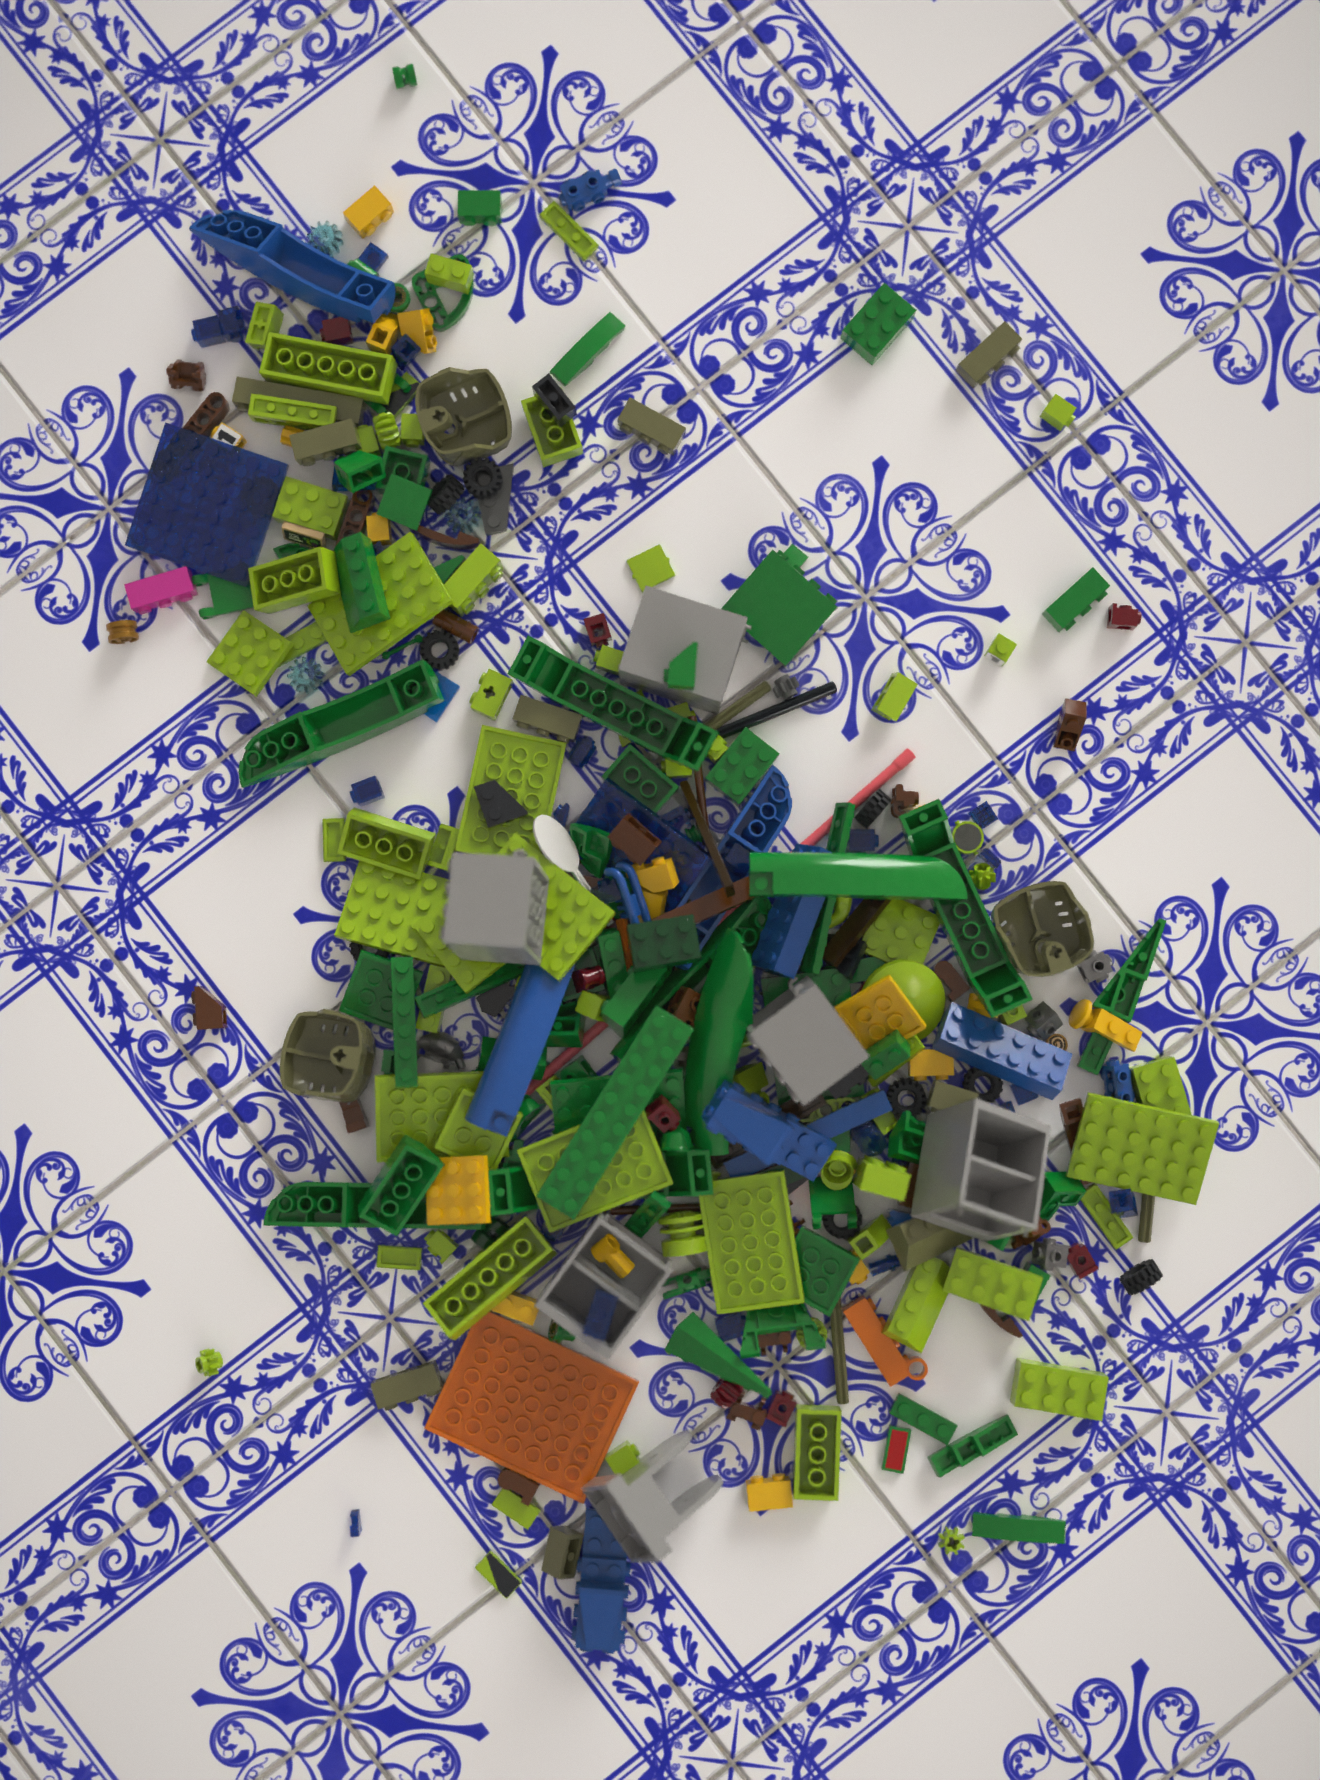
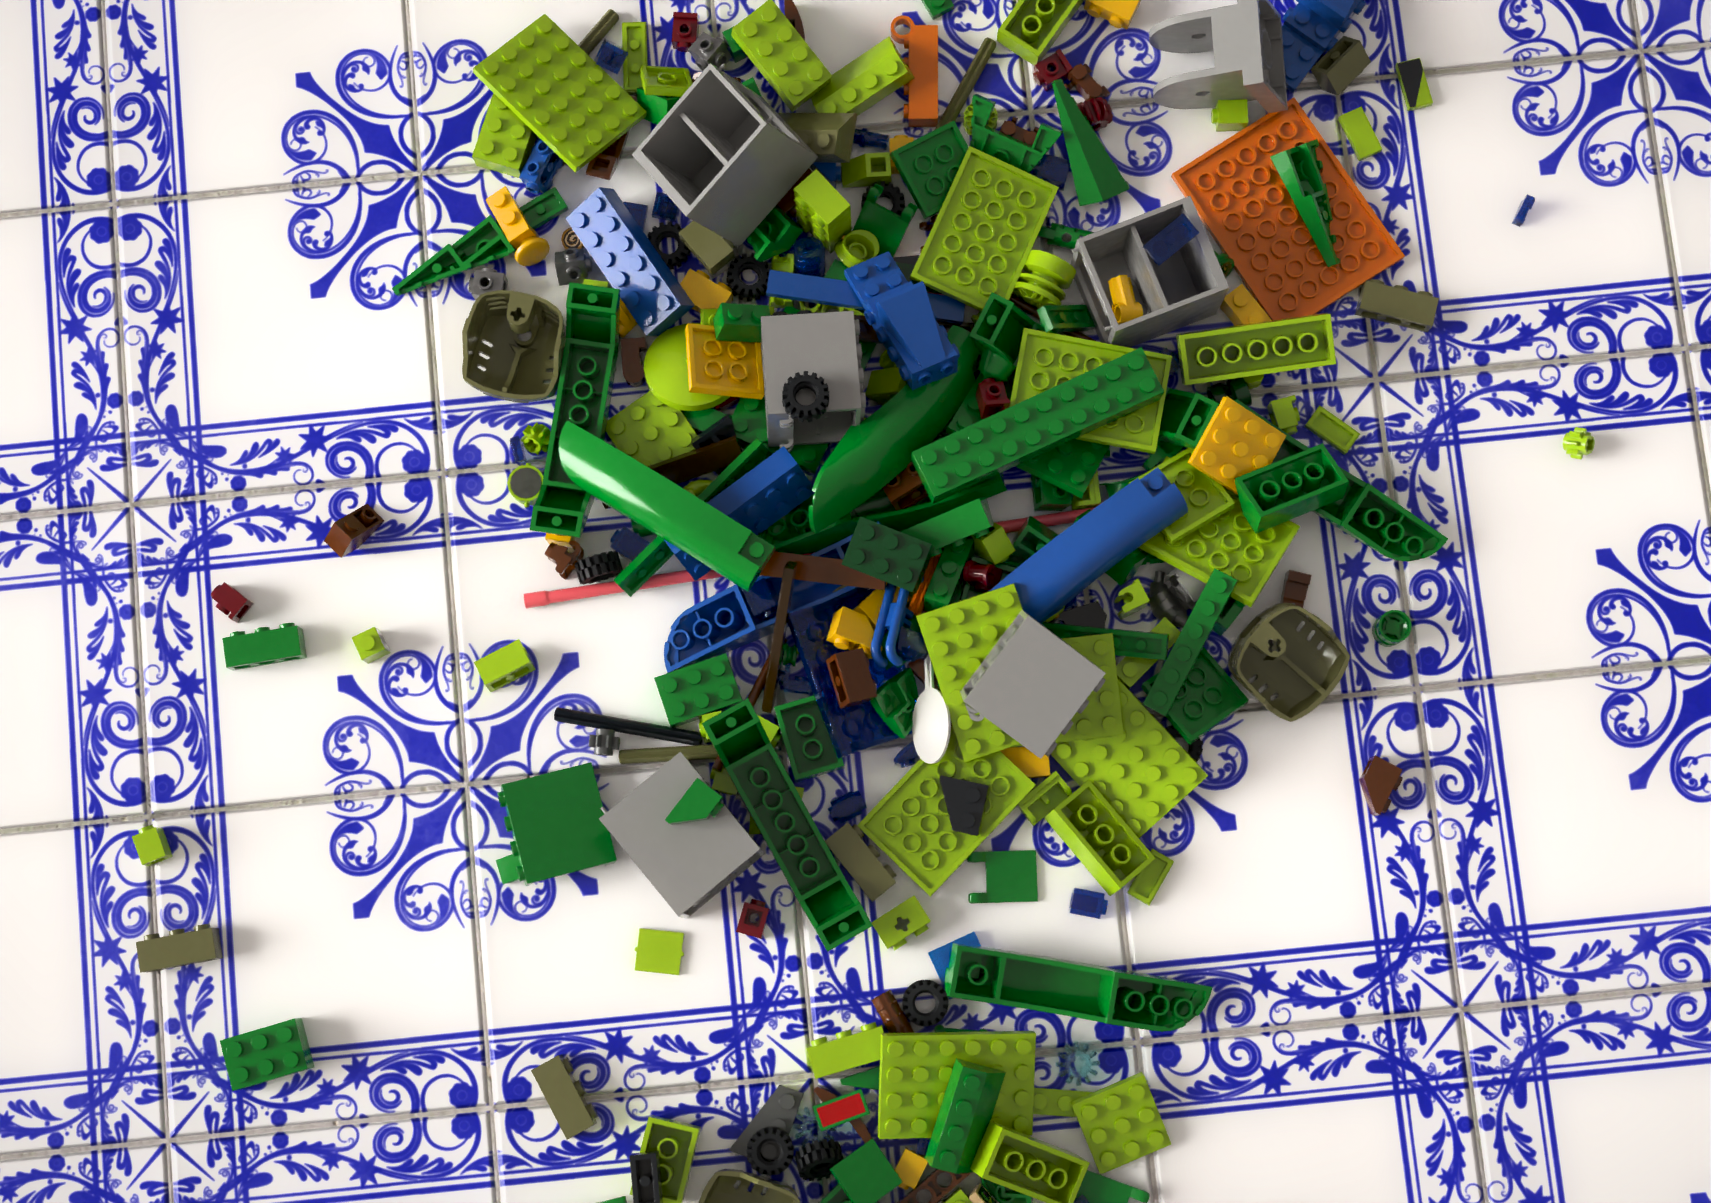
camera: 145 degrees left, 5 degrees down
(266, 1131) = (1391, 628): none -> green wheel
(435, 775) = (1009, 876): none -> green flag
(450, 536) = (841, 1109): none -> red tile
(467, 1033) = (1134, 599): none -> lime hinge
(518, 1483) = (1344, 151): reddish brown leg -> none
(538, 1440) = (1302, 178): none -> green wedge
(608, 659) = (760, 881): lime brick -> none
(798, 1027) = (805, 411): none -> black tyre
(983, 815) = (496, 497): clear blue tile -> none
(1067, 1209) = (665, 80): none -> lime tile

